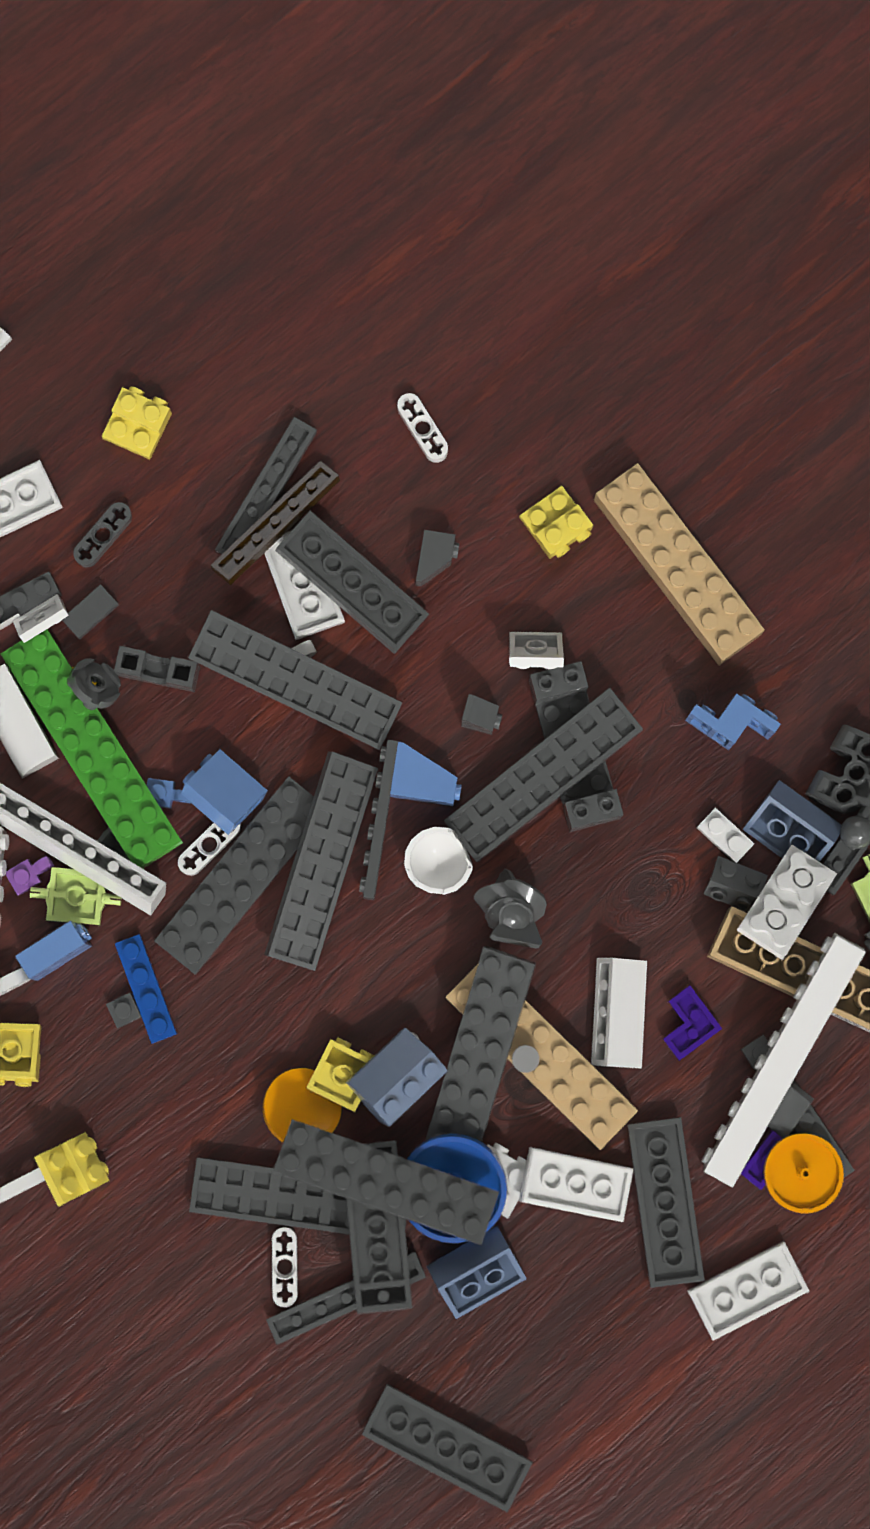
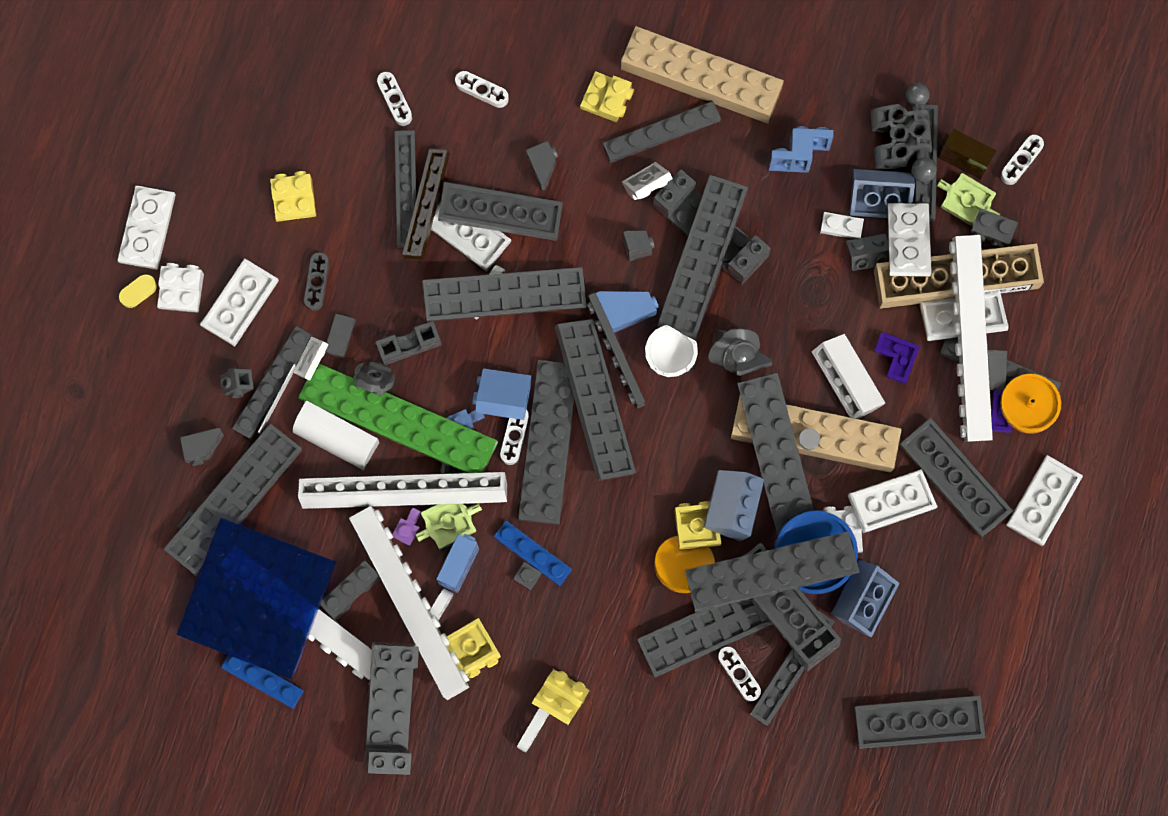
camera: 30 degrees left, 5 degrees down
(314, 360) = (393, 83): none -> white beam
(592, 601) = (661, 132): none -> dark grey plate
(763, 1014) = (940, 319): none -> white piece

